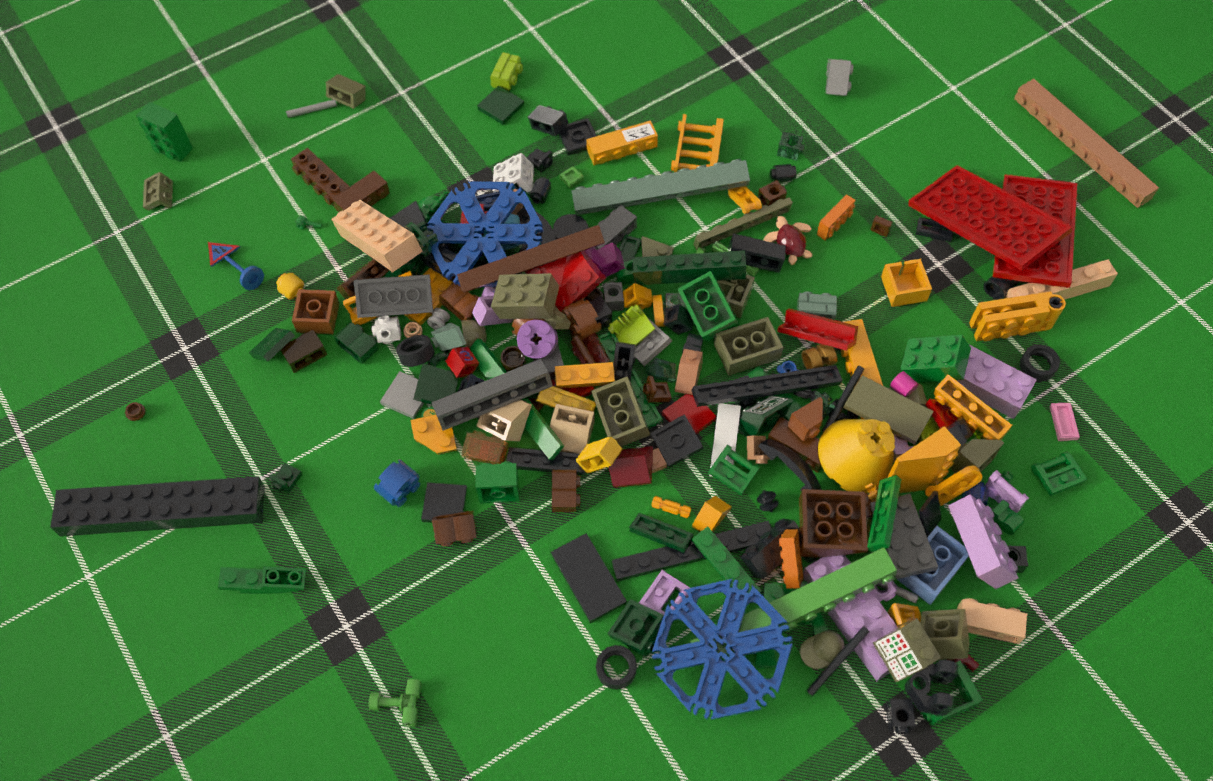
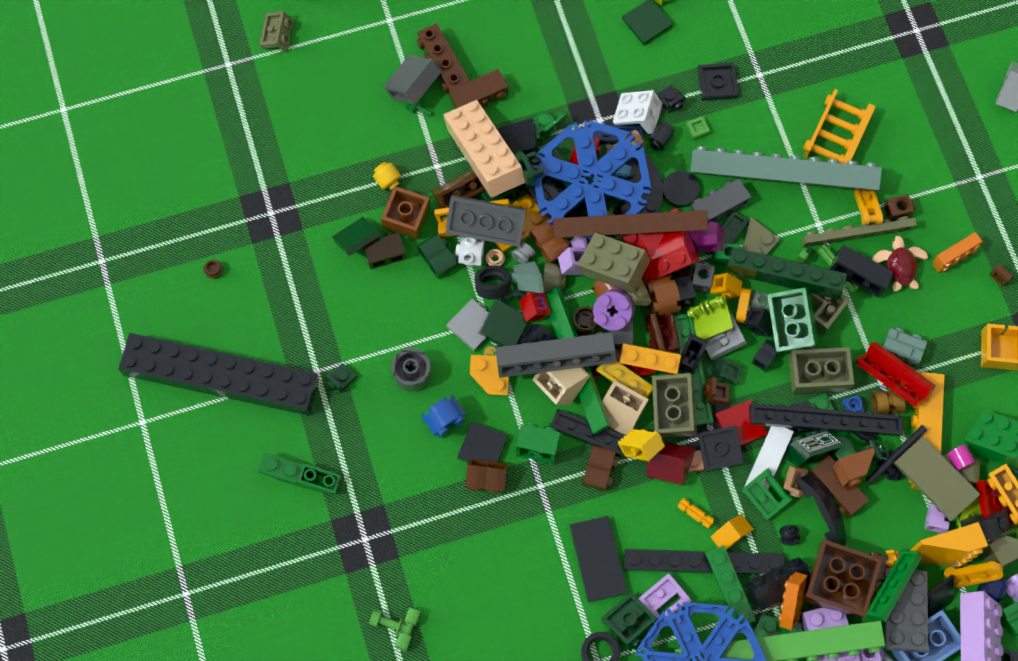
camera: 15 degrees right, 10 degrees up
(249, 278) = (325, 117): blue piece -> none
(295, 198) = (412, 79): none -> dark grey brick
(354, 449) = (408, 359): none -> dark grey brick
(484, 449) = (533, 404): clear orange brick -> none
(548, 120) = (691, 56): brick -> none
(622, 142) = (761, 103): light orange brick -> none
(661, 532) = (679, 536): dark green tile -> none
(688, 371) = (753, 381): nougat slope -> none
(783, 172) = (919, 185): black brick -> none
(790, 146) = (931, 160): clear green brick -> none
(857, 452) = (890, 514): yellow cone -> none

